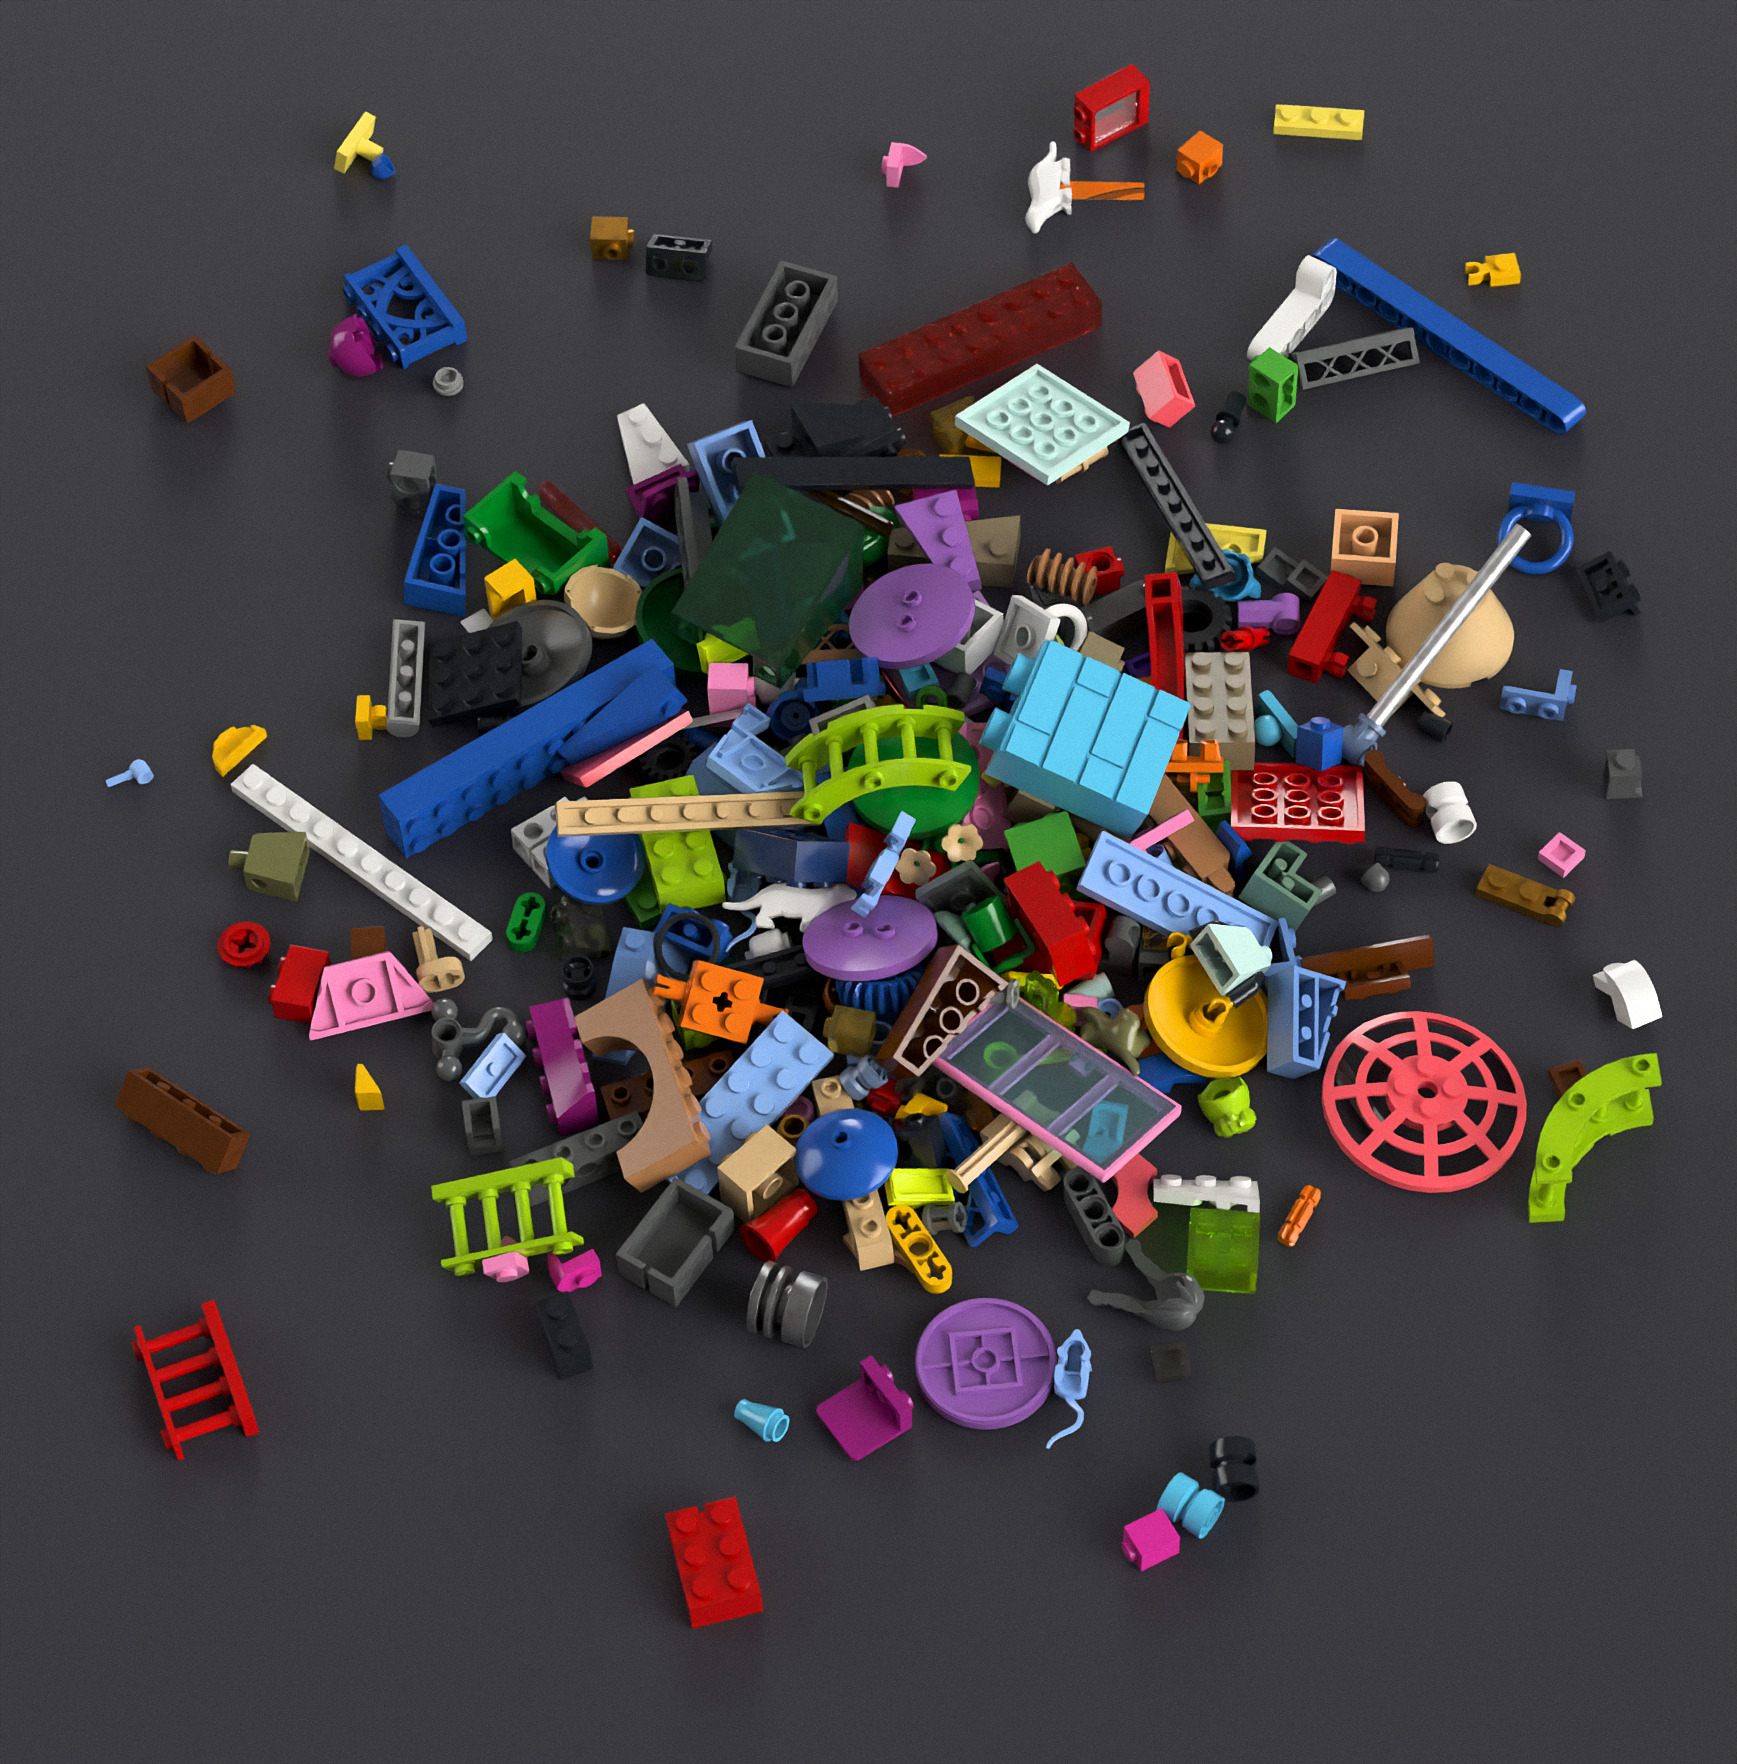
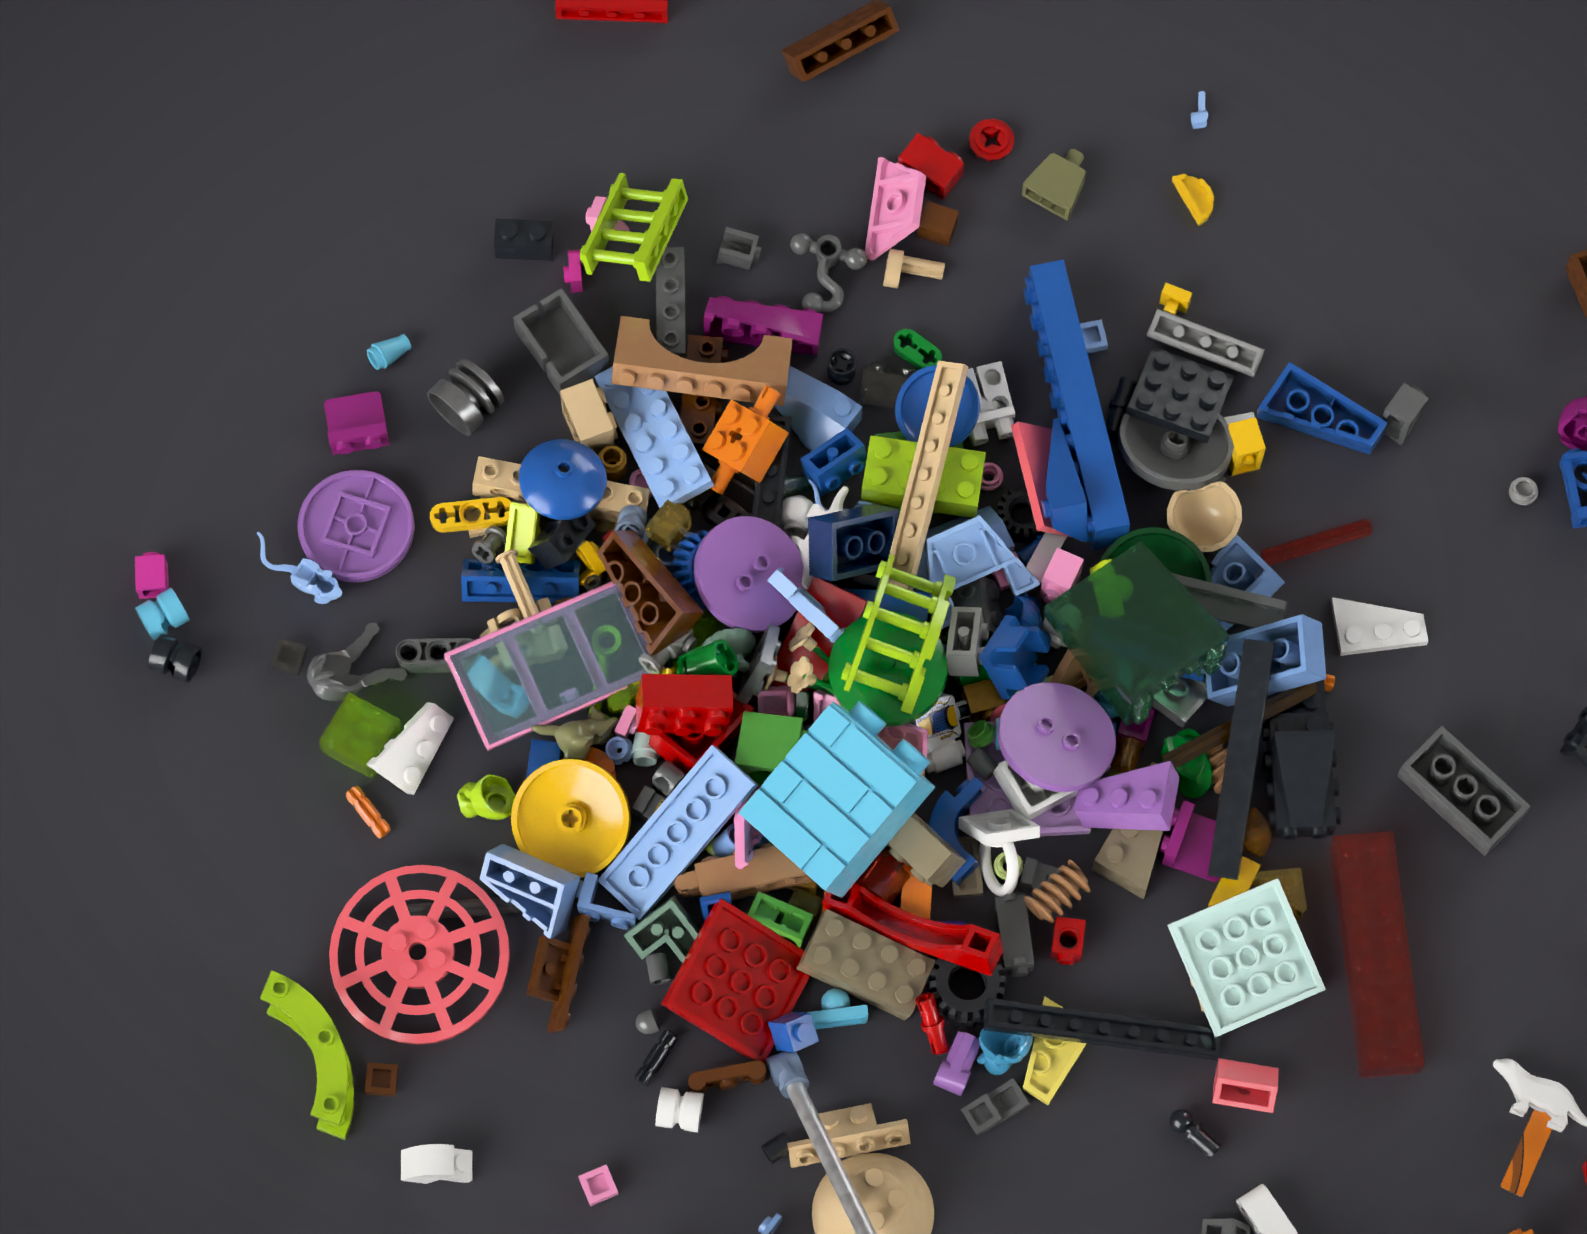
camera: 110 degrees right, 15 degrees up
(362, 862) = (1035, 250): white plate -> none
(366, 1091) = (810, 180): yellow slope -> none
(493, 1067) = (785, 274): light blue plate -> none
(518, 528) = (1295, 486): green windscreen -> none
(655, 495) = (1313, 603): magenta bracket -> none
(681, 916) = (800, 433): black piece -> none
(714, 1562) = (287, 271): red piece -> none
(778, 1225) = (541, 417): red plant -> none
(1133, 1204) = (437, 690): coral tile -> none
(1208, 762) = (803, 904): orange hips -> none
(1230, 959) = (602, 846): light aqua torso -> none
(1272, 384) = (1205, 1179): bright green brick -> none
(1324, 626) = (922, 1104): red brick -> none
(1365, 545) = (987, 1174): light nougat brick -> none
(1524, 896) = (576, 1136): pearl gold plate -> none

